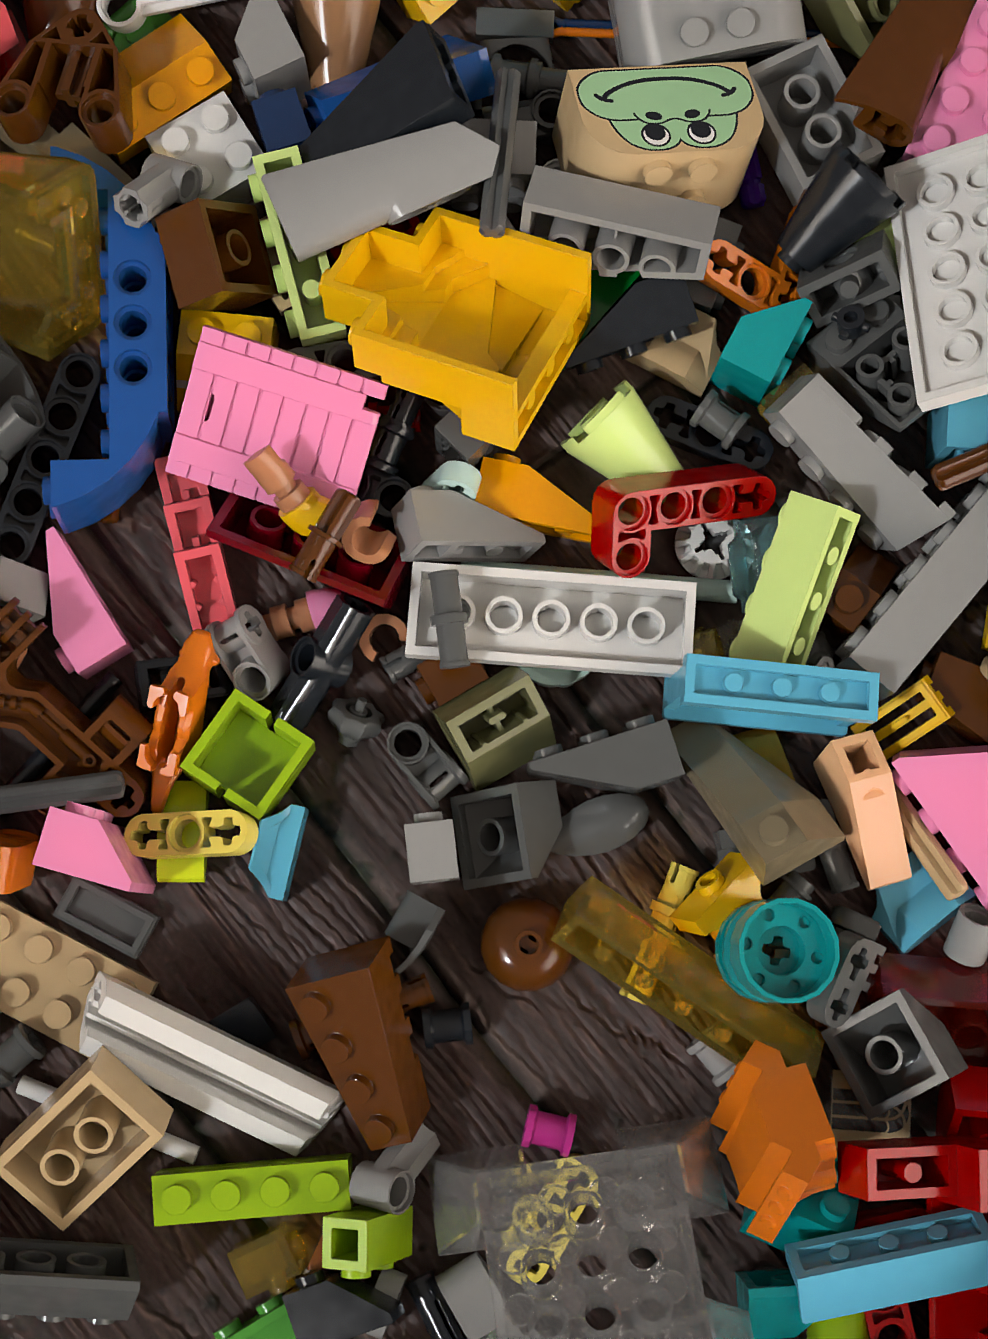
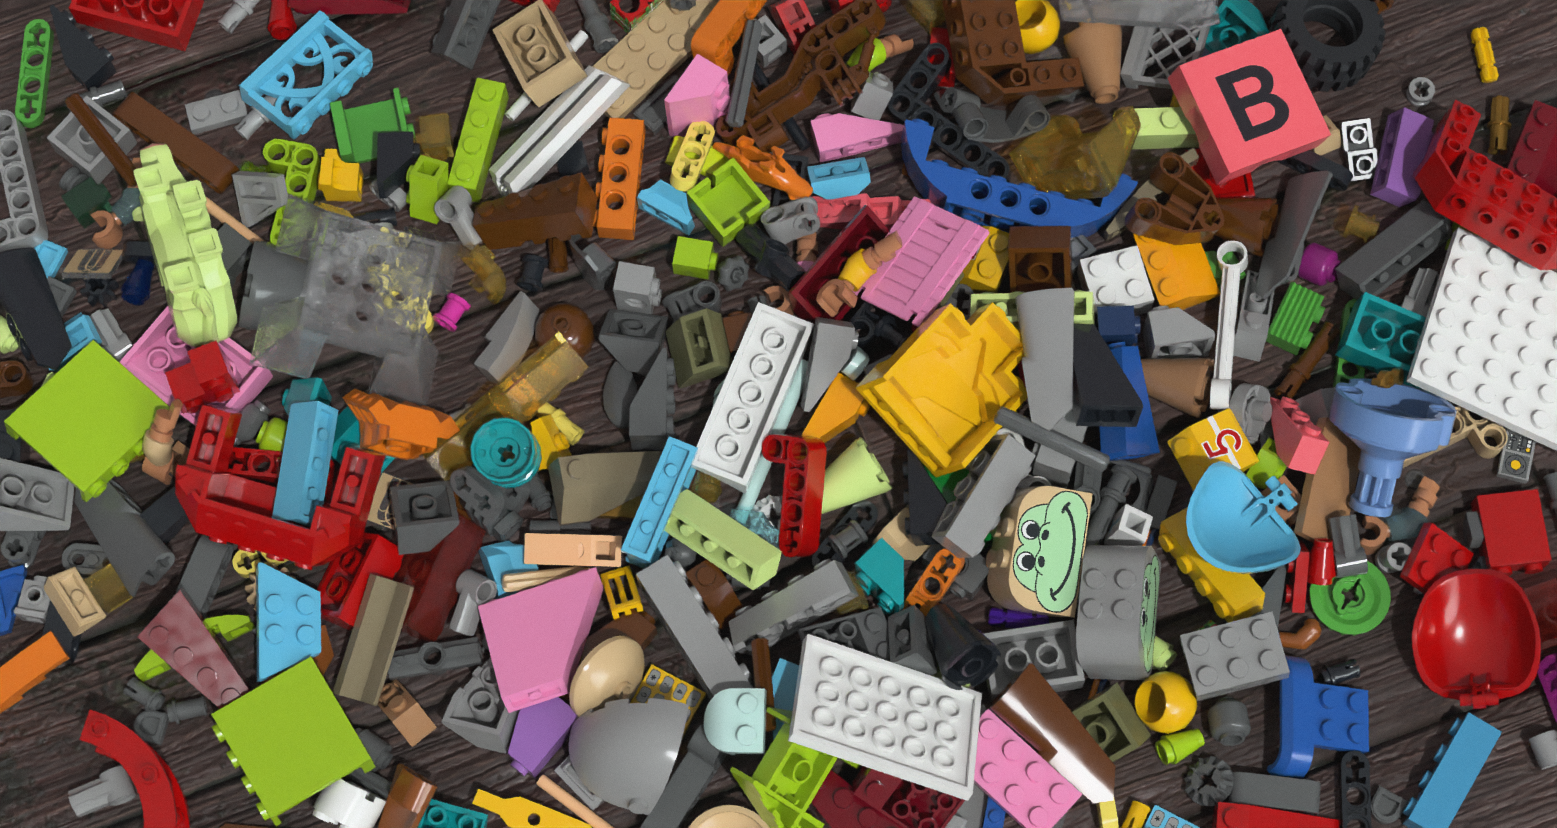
camera: 115 degrees right, 10 degrees down
(159, 186) = (1095, 241): light grey piece -> none
(159, 600) = (839, 178): none -> medium azure slope
(176, 946) = (628, 135): none -> orange brick
(325, 534) = (838, 266): reddish brown axle -> none
(348, 783) = (694, 258): none -> lime brick
(449, 619) = (768, 329): dark grey pin -> none
(477, 1100) = (488, 273): none -> clear yellow slope
(570, 1022) = (508, 339): none -> light grey slope
(576, 39) = (1128, 527): none -> white brick
(851, 322) = (881, 630): black piece -> none

